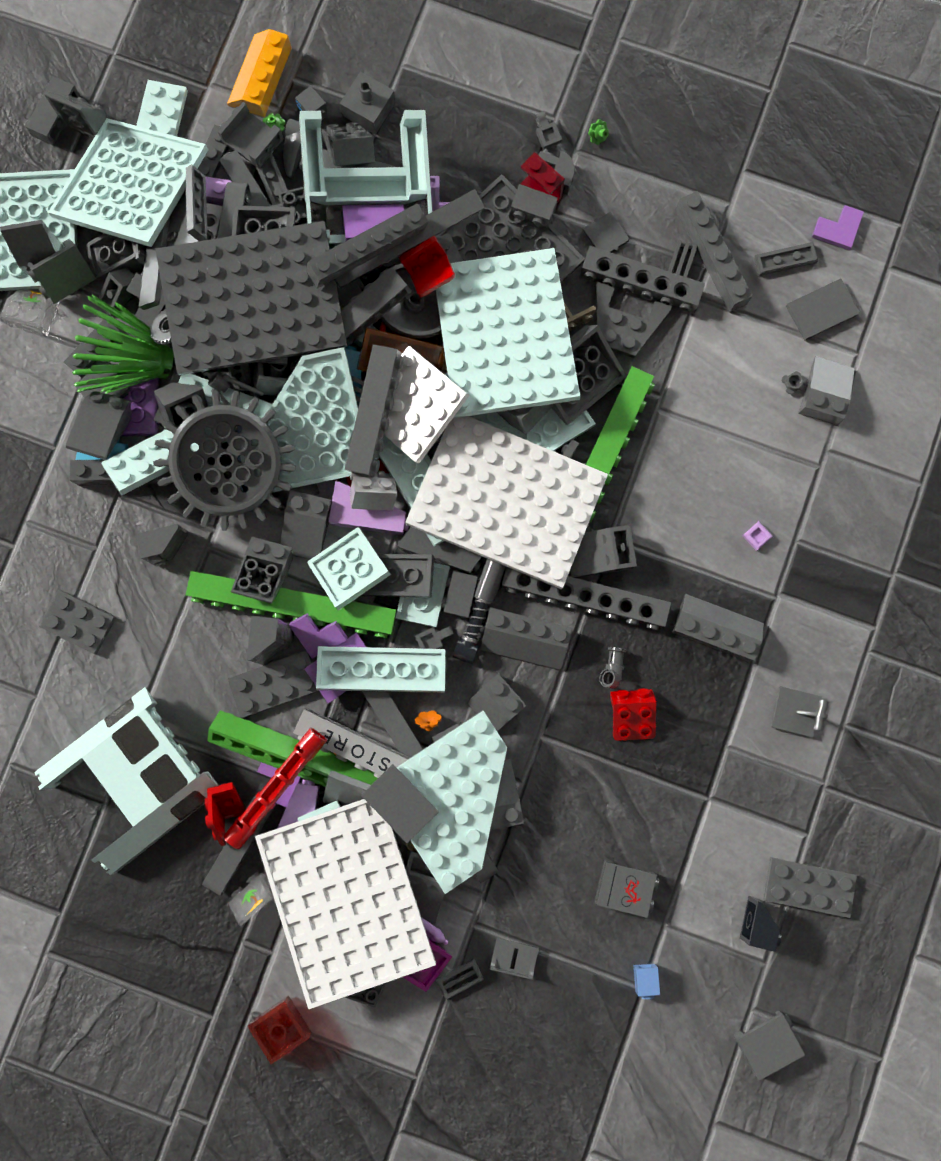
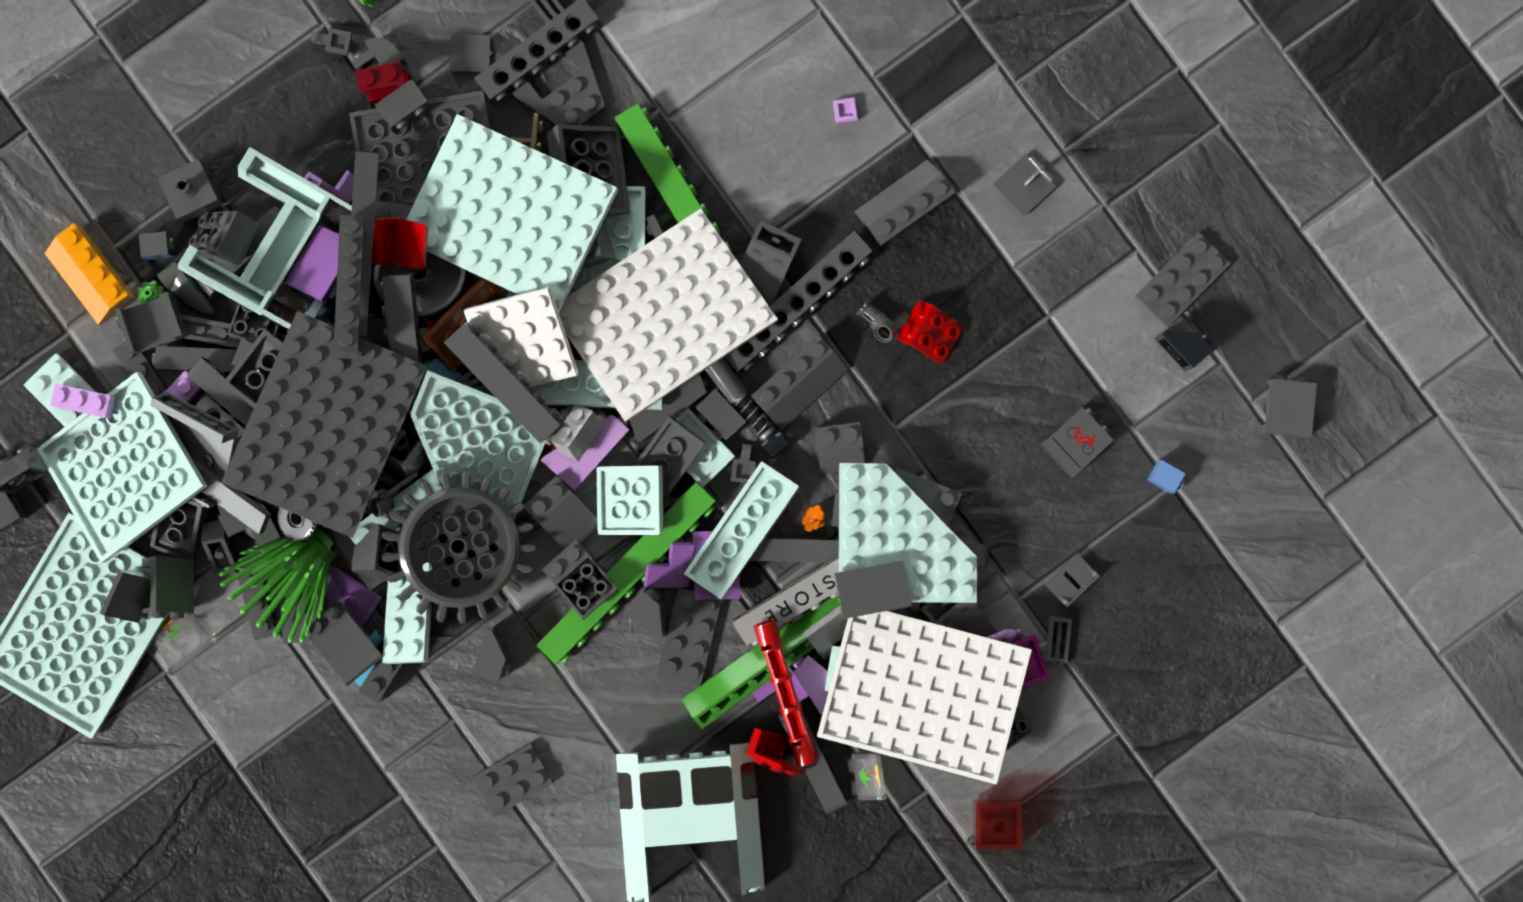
camera: 55 degrees left, 5 degrees up
(160, 123) = (82, 401): none -> lavender plate

